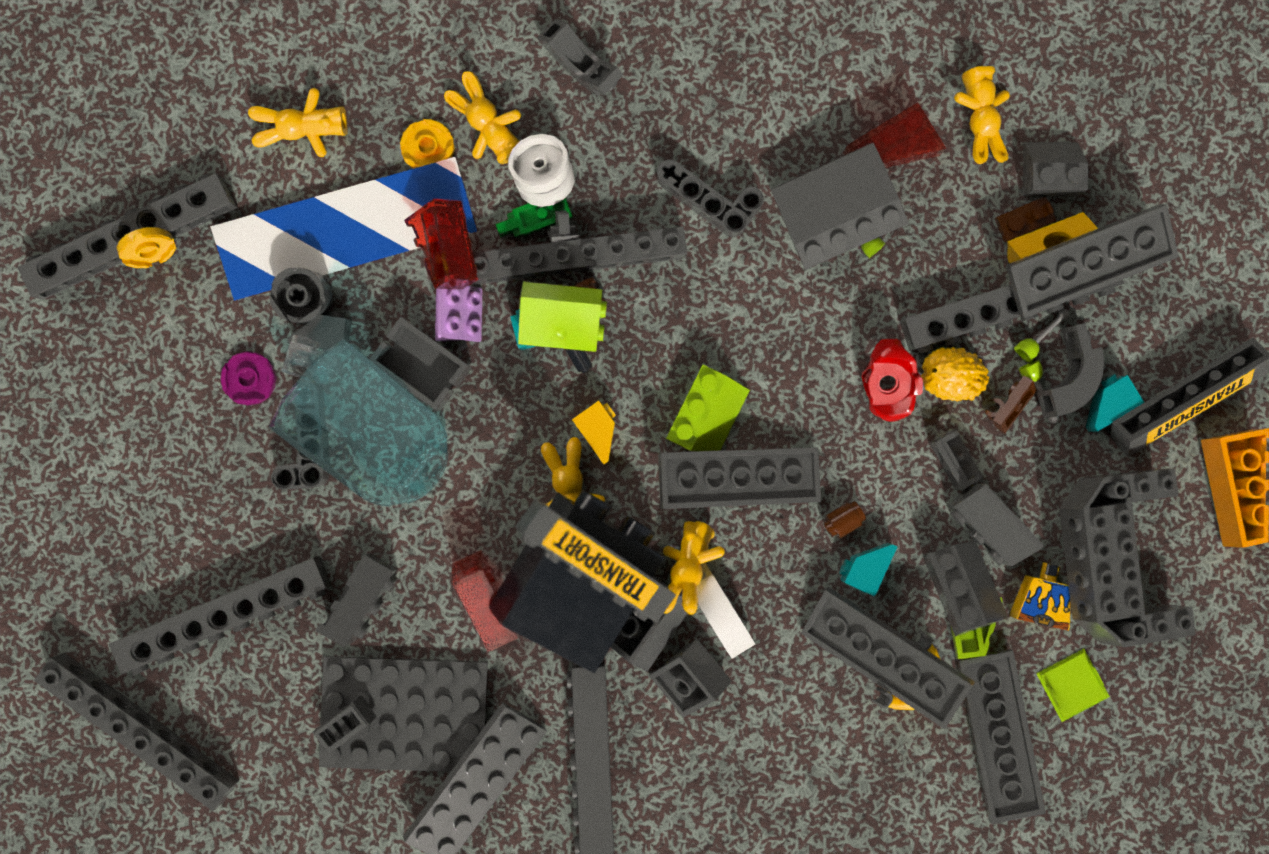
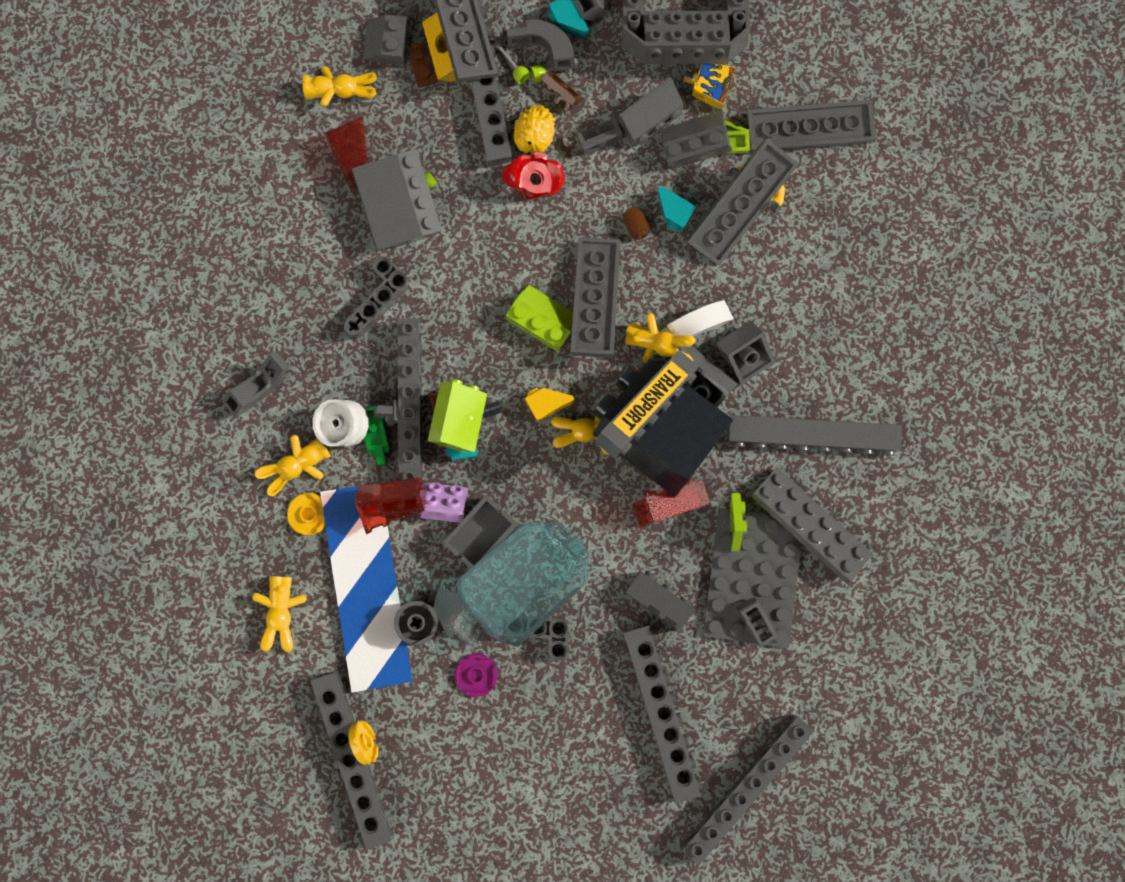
camera: 85 degrees left, 5 degrees down
(464, 688) = (737, 524): none -> lime wing
(1073, 685) = (777, 69): lime piece -> none

